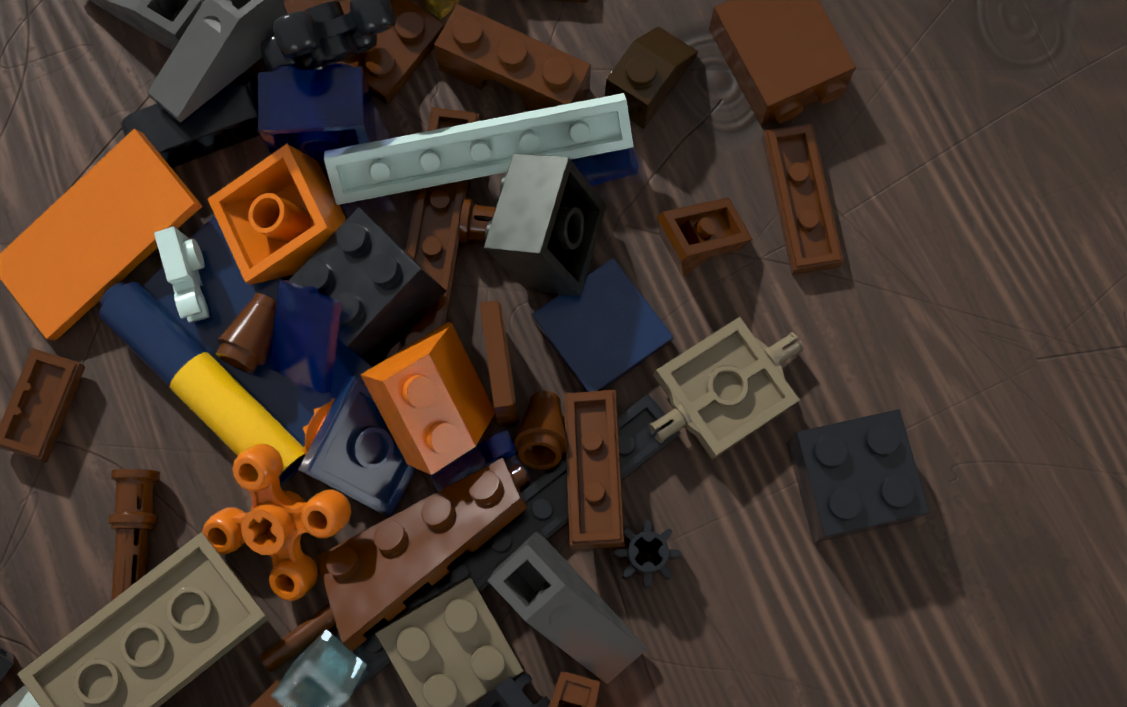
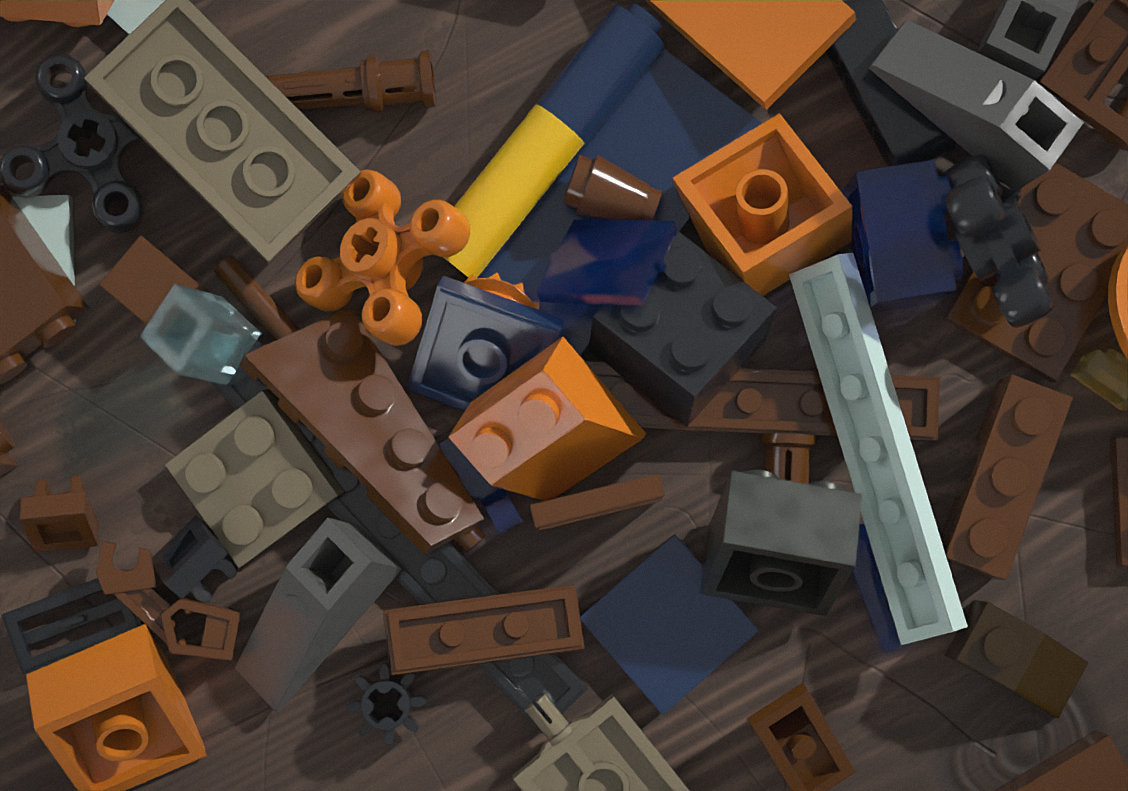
camera: 85 degrees right, 10 degrees up
(181, 263) = (688, 96): light aqua plate -> none
(542, 433) = (524, 562): reddish brown cone -> none

